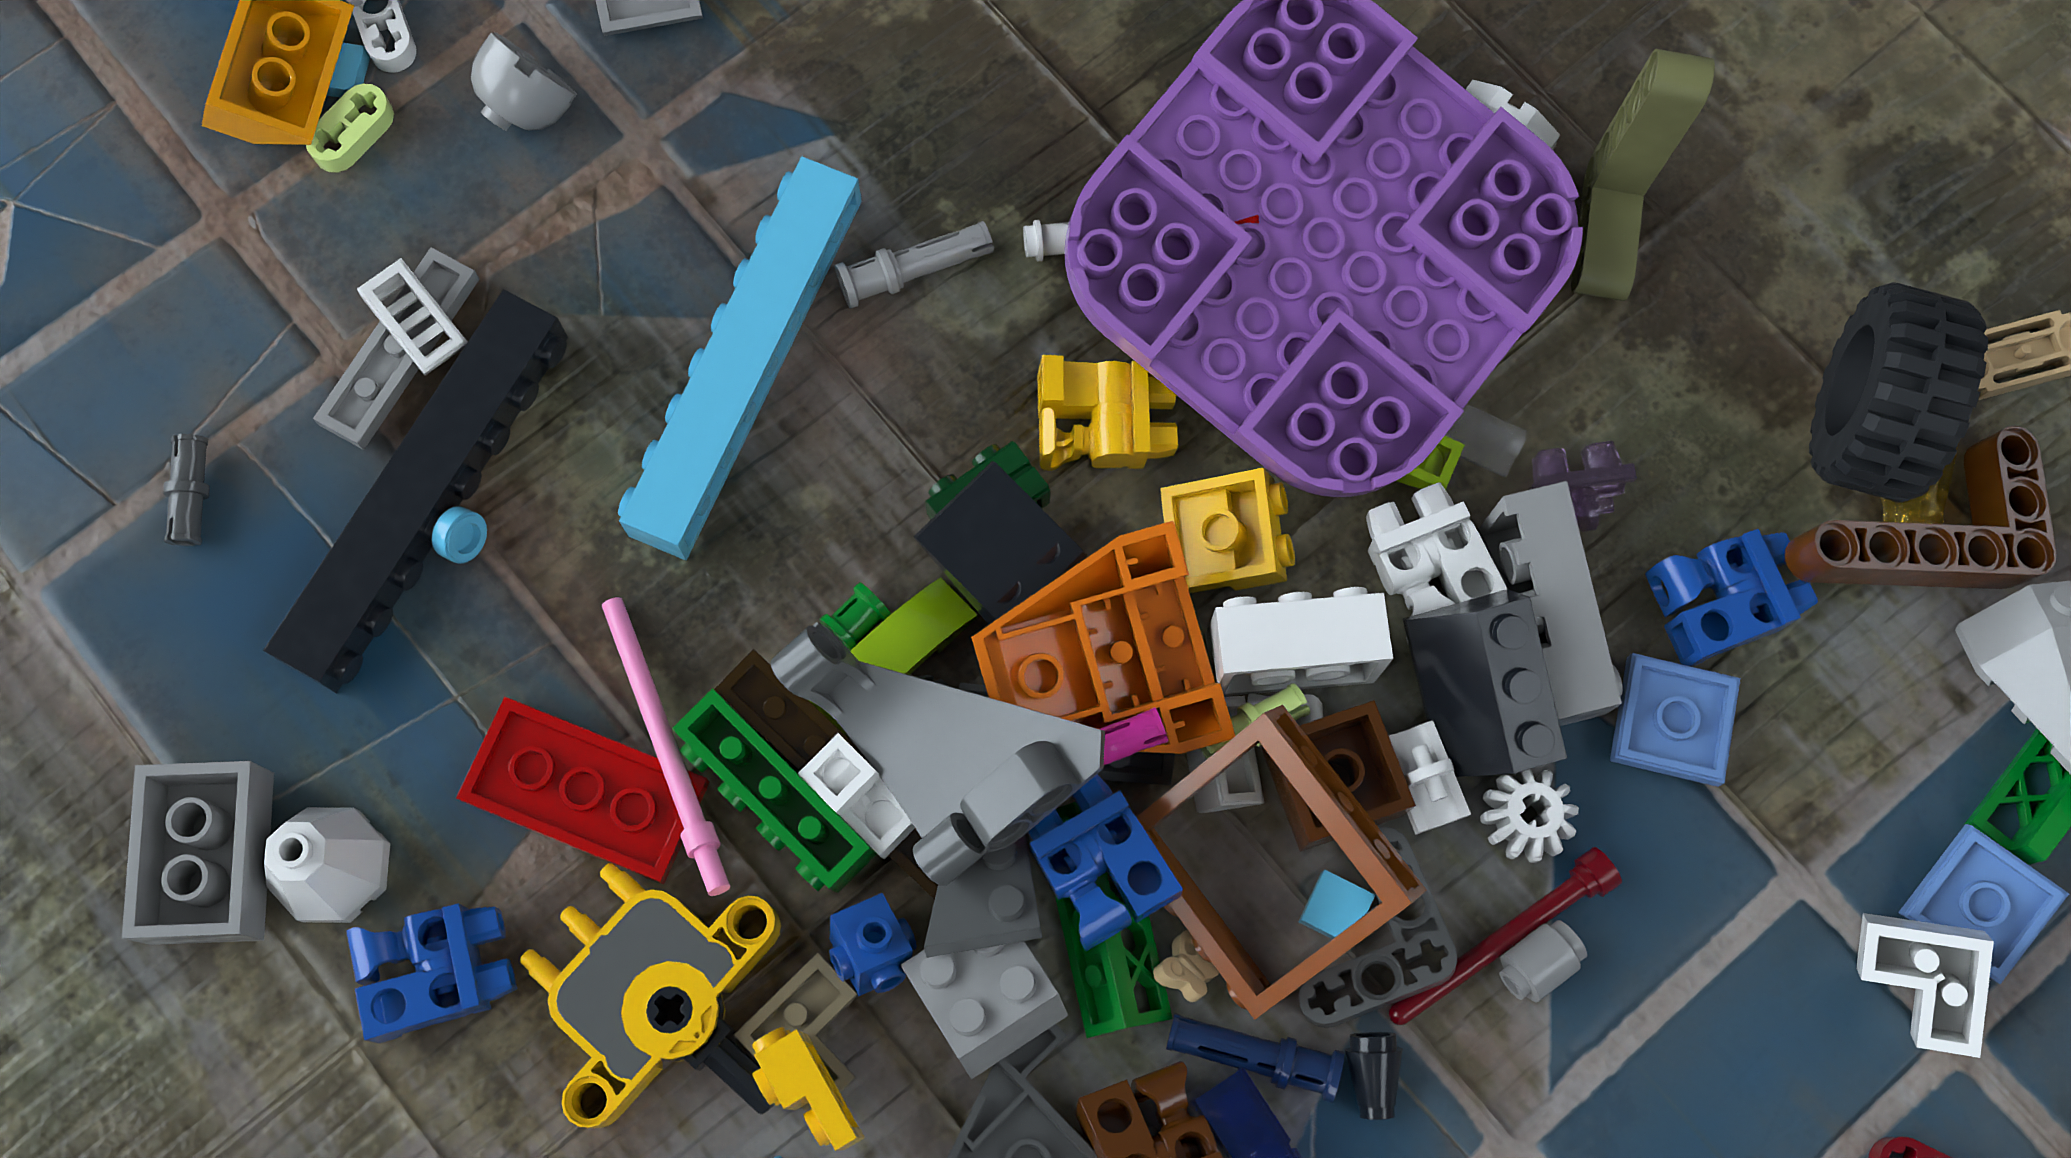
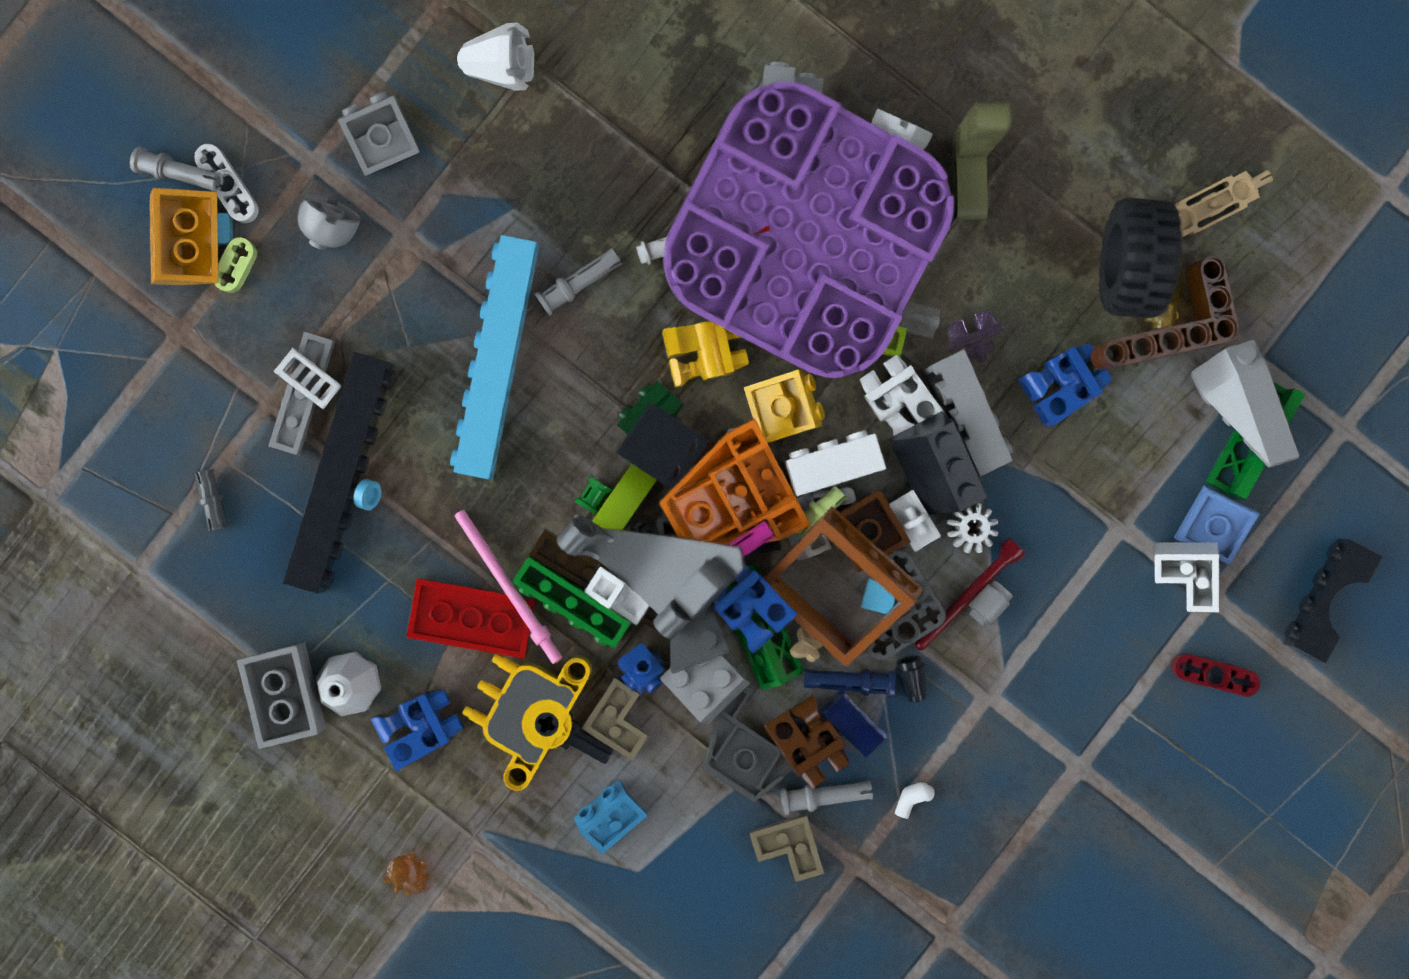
camera: 10 degrees left, 15 degrees up
(797, 1076) = (620, 746): yellow plate -> none
(1675, 720) = (1043, 459): medium blue plate -> none

